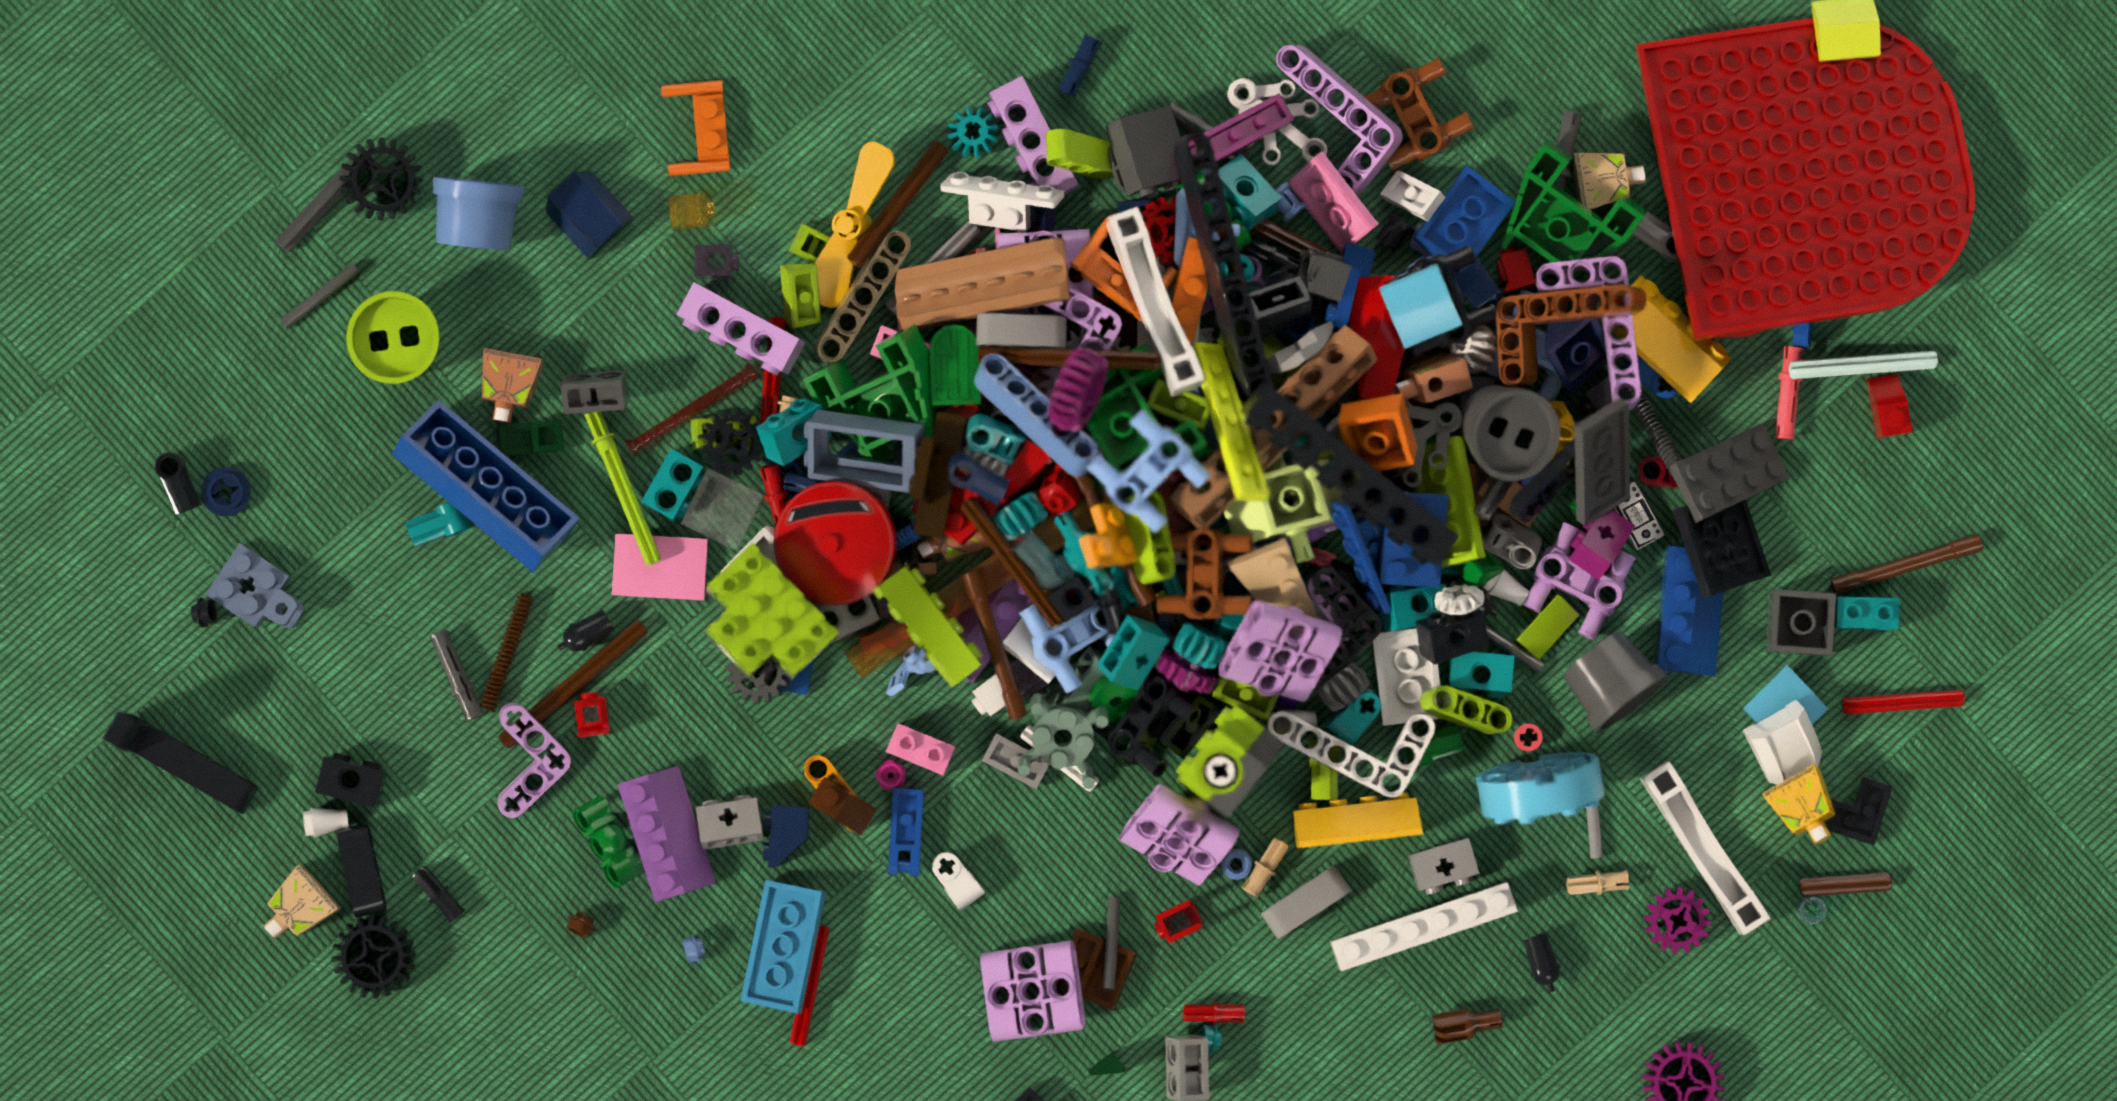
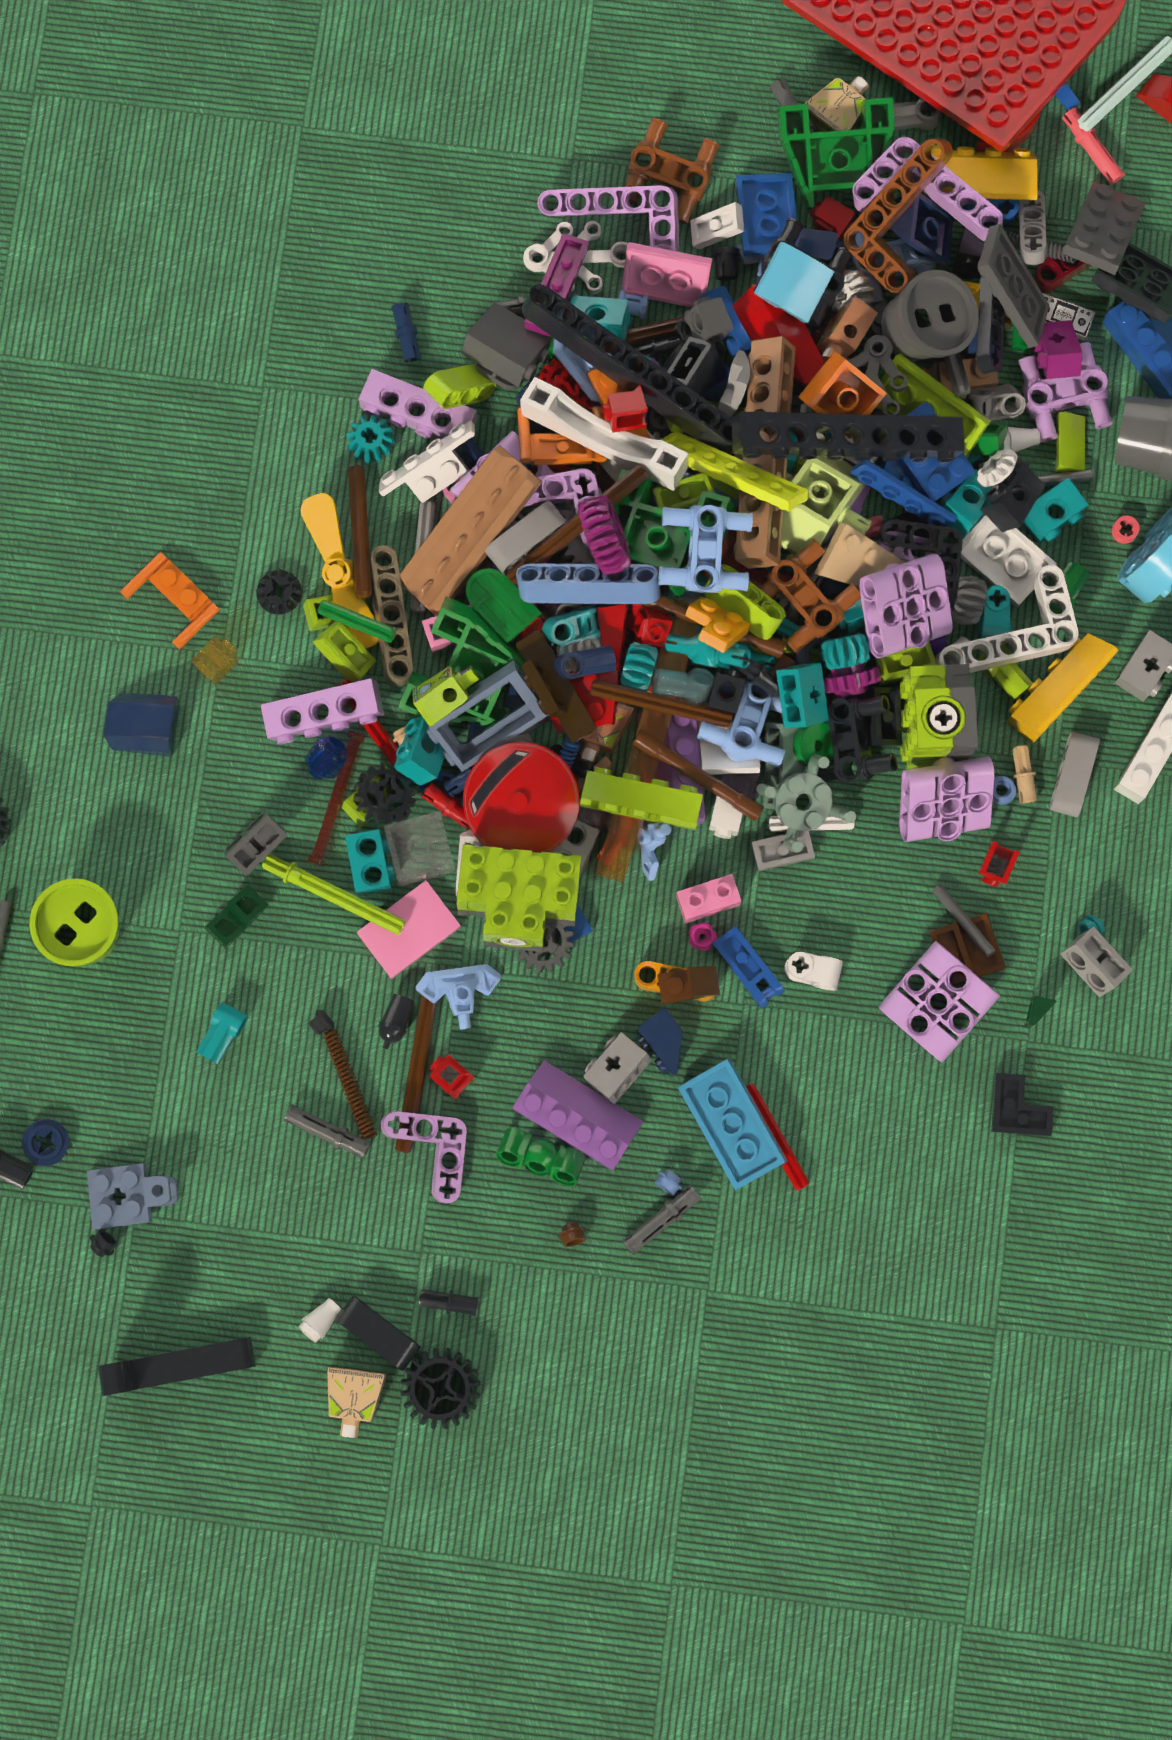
camera: 35 degrees left, 5 degrees down
(332, 781) = (333, 1273): black brick -> none
(476, 212) = (59, 785): medium blue piece -> none
(485, 486) = (232, 975): blue brick -> none
(509, 381) = (186, 888): nougat torso -> none
(526, 583) = (321, 1022): none -> black piece
(659, 650) = (459, 988): none -> light blue piece
(670, 974) = (662, 1219): none -> dark grey pin
(705, 252) = (264, 692): brick -> none
(711, 370) = (326, 758): none -> clear blue head
(777, 203) = (274, 604): none -> black gear
(829, 280) = (357, 621): none -> green axle
(842, 403) = (435, 701): none -> lime torso
(1188, 297) = (625, 410): none -> red window
(1214, 1013) = (1079, 908): red axle -> none
(1479, 710) = (1076, 535): lime beam -> none
(1672, 423) = (1032, 226): none -> light grey beam

